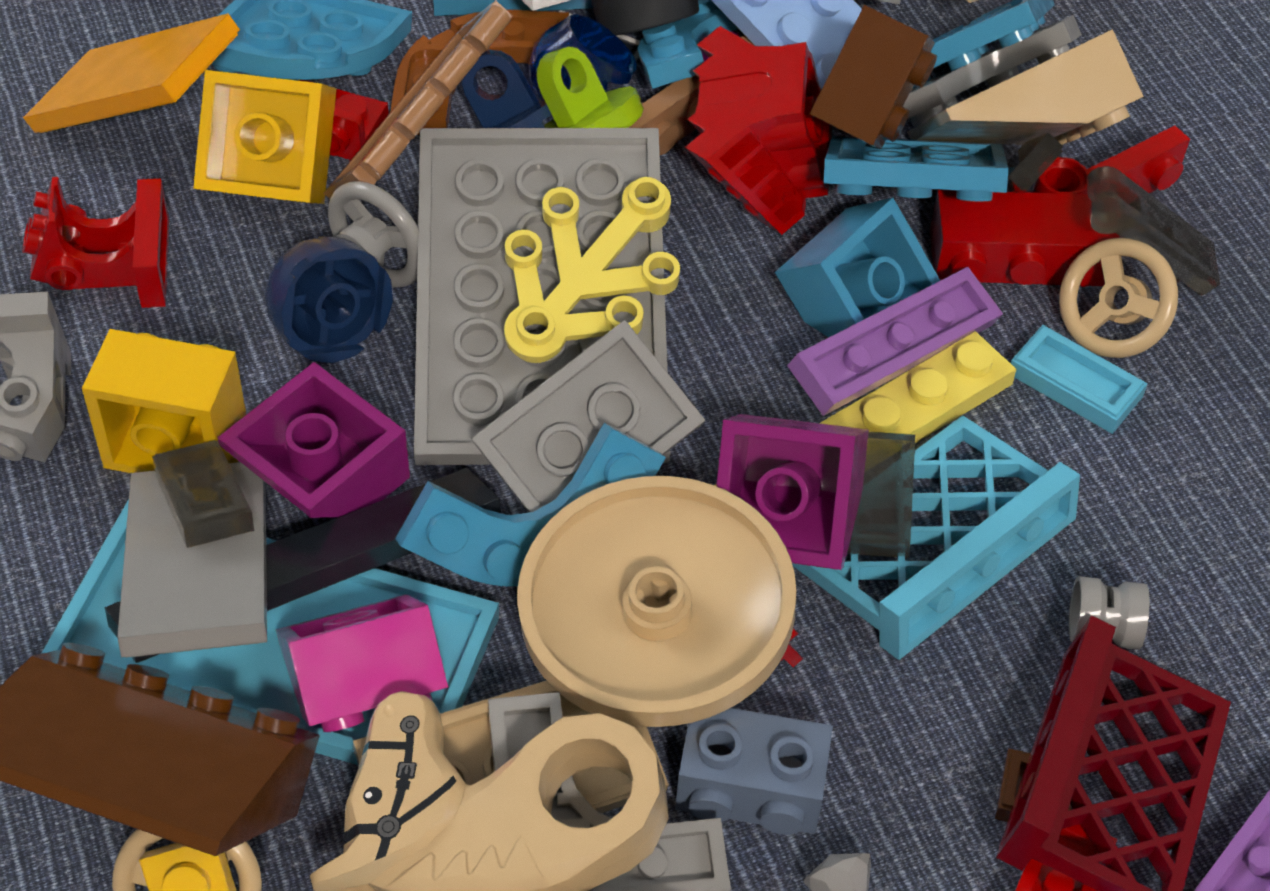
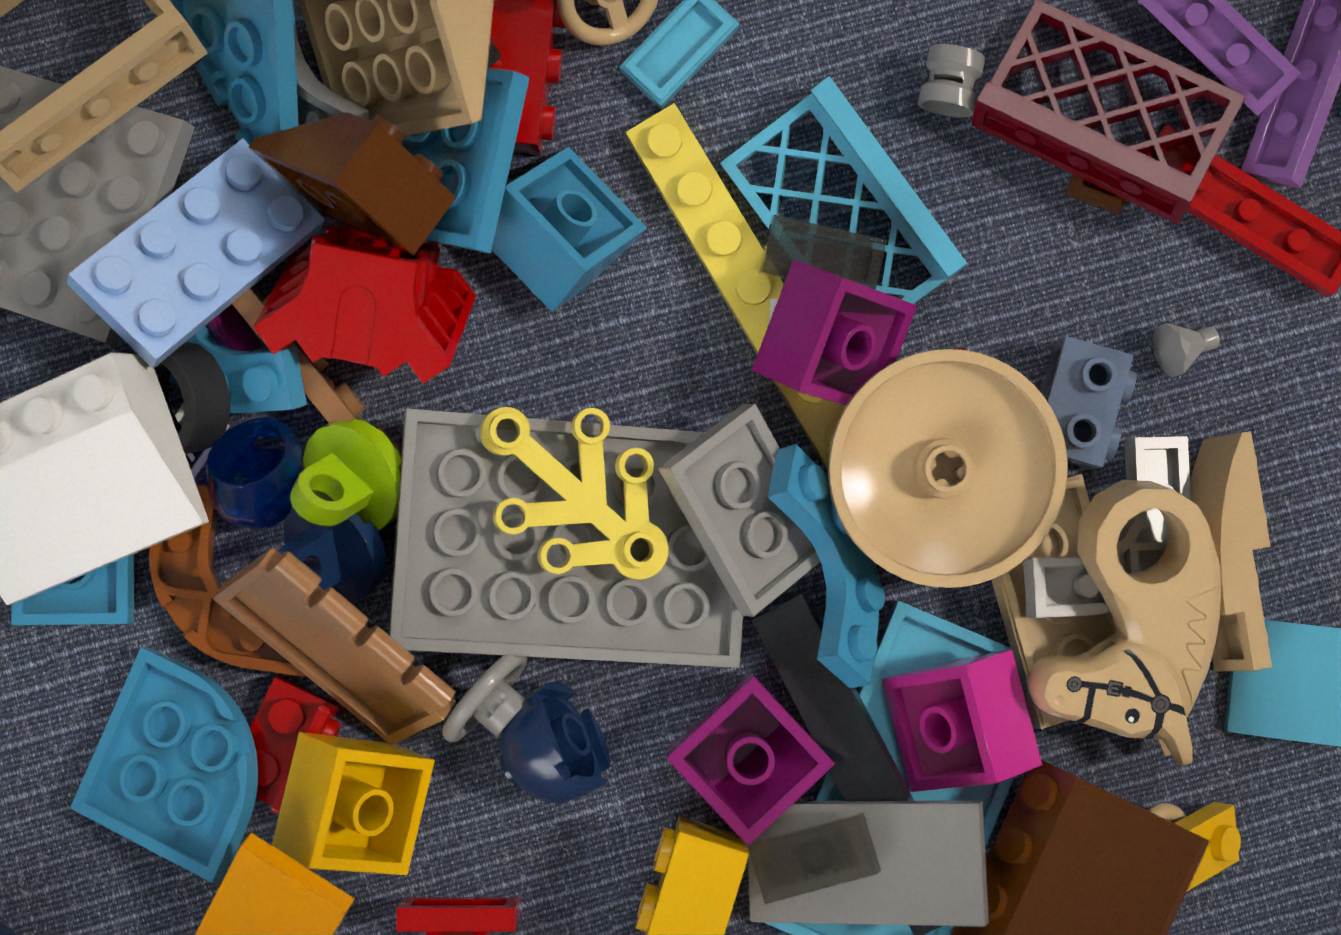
camera: 80 degrees left, 35 degrees up
(893, 340) = (645, 209): medium lavender plate -> none

